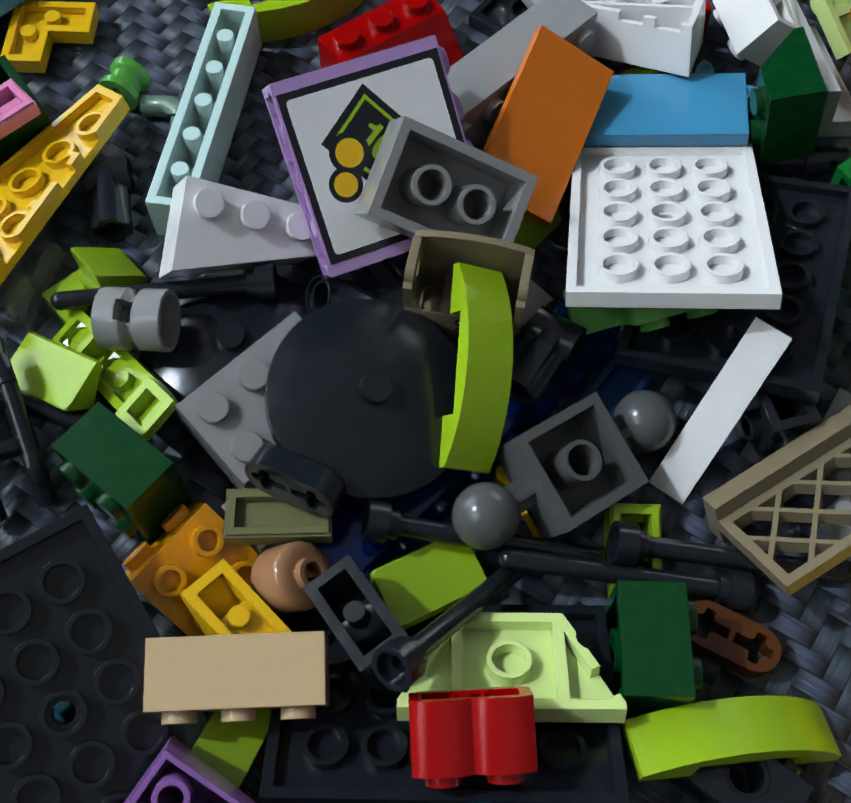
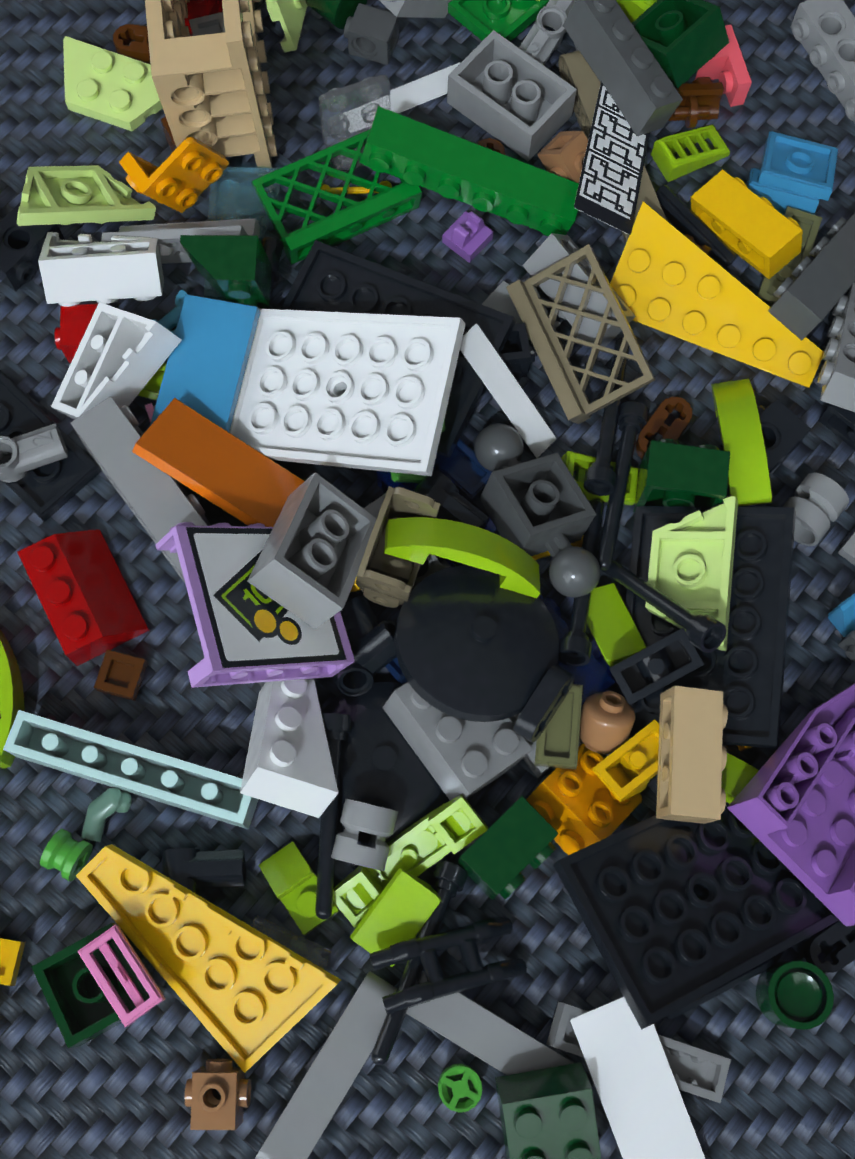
camera: 85 degrees left, 10 degrees up
(472, 735) = (750, 594): red brick -> none

